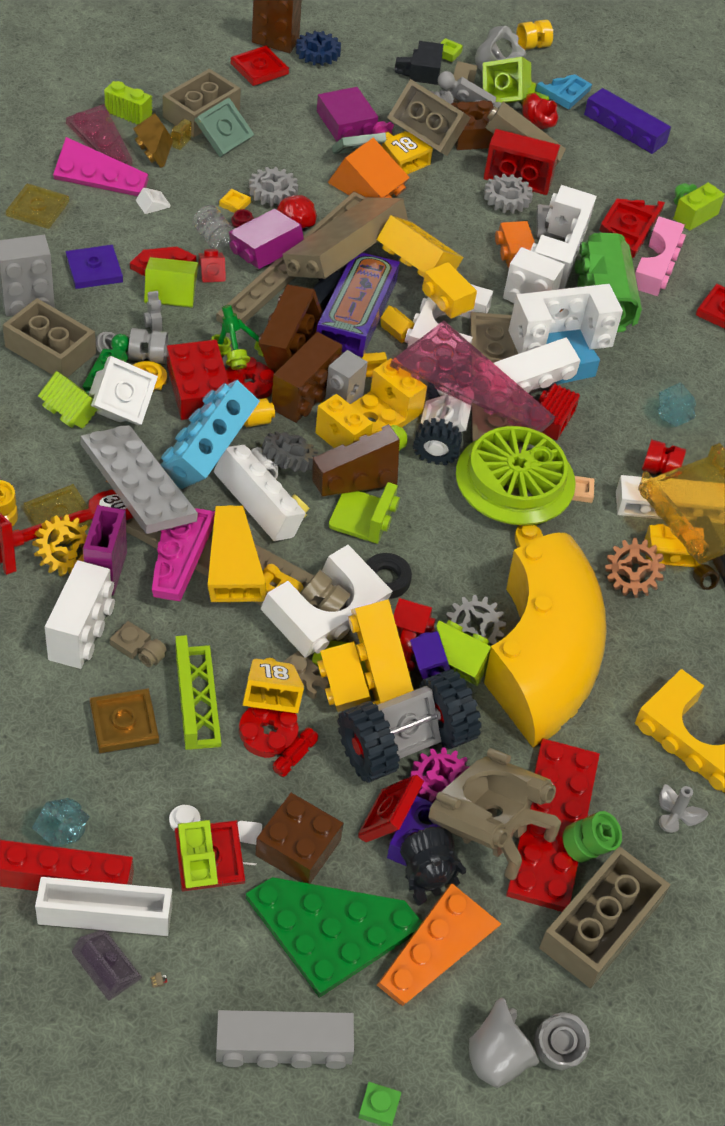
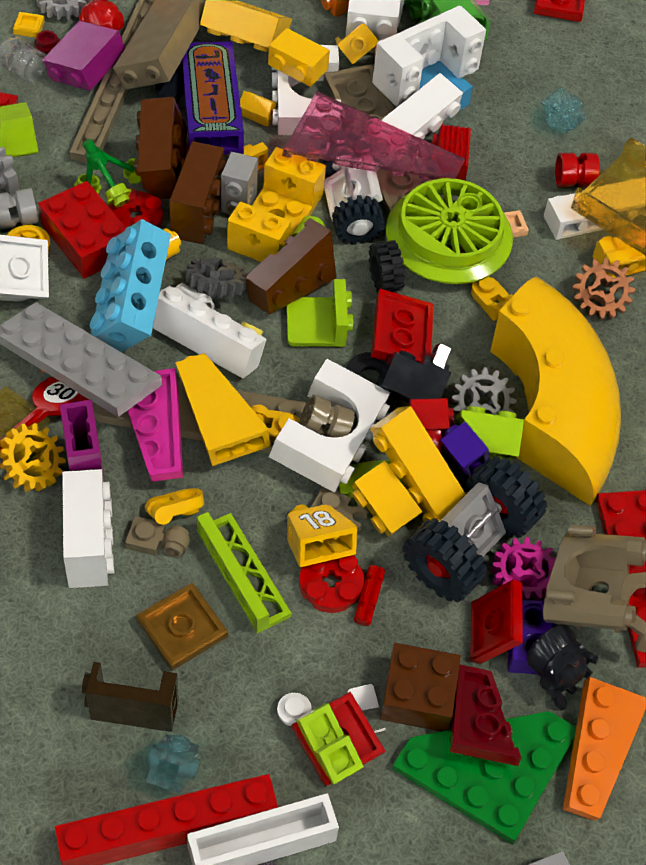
camera: 20 degrees left, 5 degrees up
(50, 765) = (131, 704): none -> dark brown panel
(174, 623) = (182, 502): none -> yellow plate
(212, 266) = (40, 101): red bracket -> none
(336, 882) = (478, 719): none -> dark red wing
(414, 585) = (414, 379): none -> black hinge
(432, 545) = (401, 325): none -> red plate
(443, 488) = (386, 266): none -> black tyre
(506, 293) = (357, 43): none -> yellow bracket

